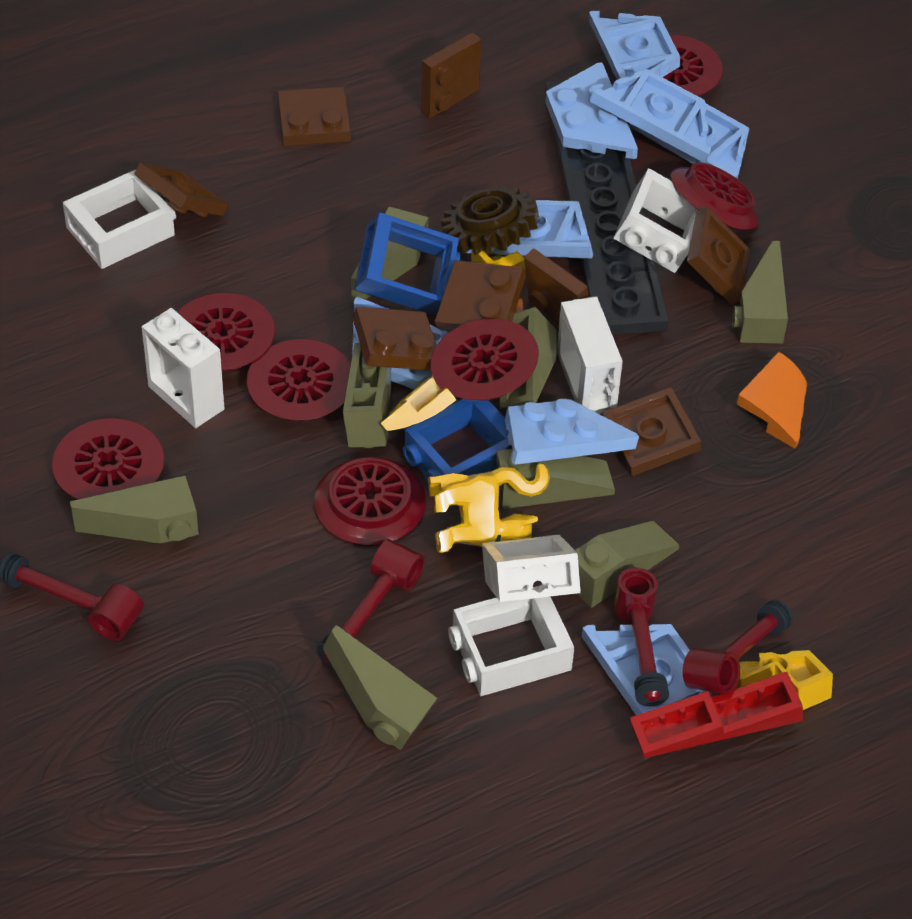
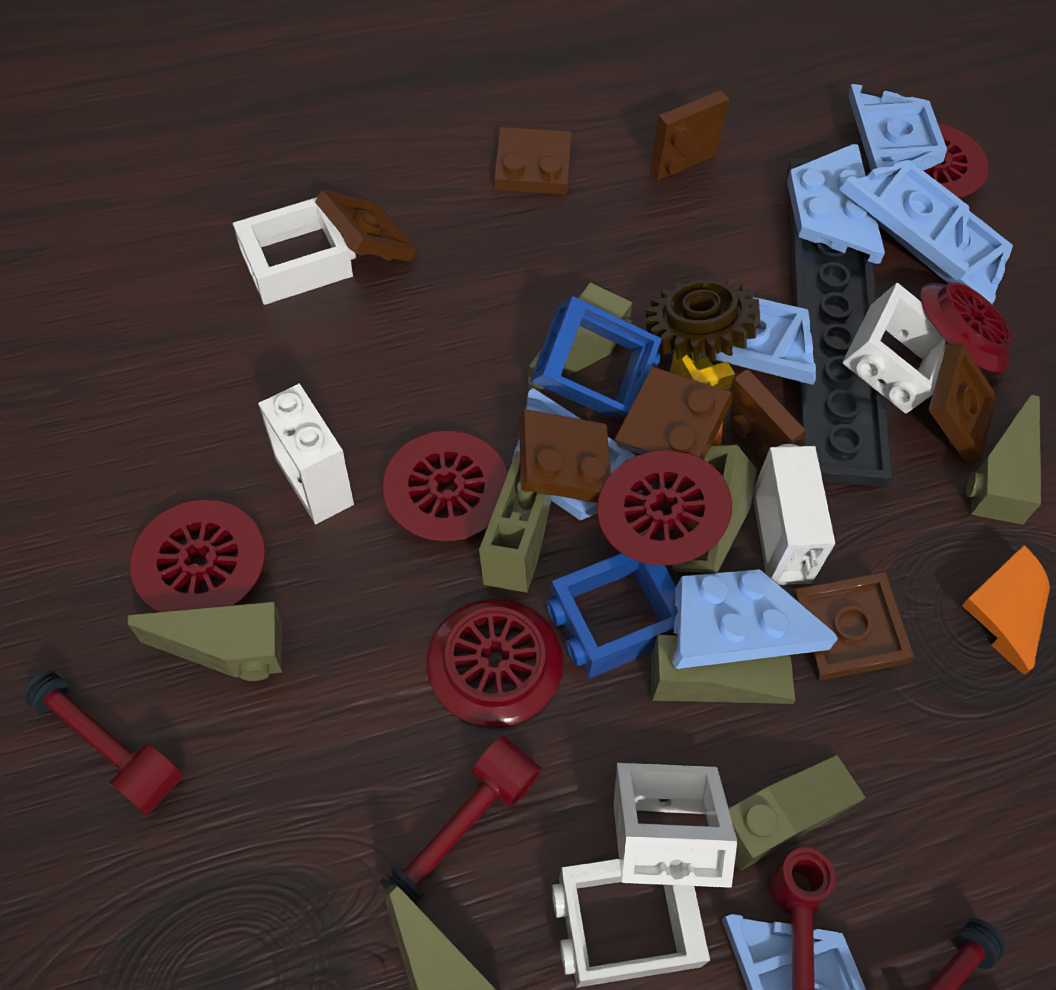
camera: 10 degrees right, 10 degrees up
(242, 320) = (410, 406): dark red piece -> none
(419, 405) = (573, 552): yellow slope -> none
(478, 506) = (622, 706): yellow animal -> none

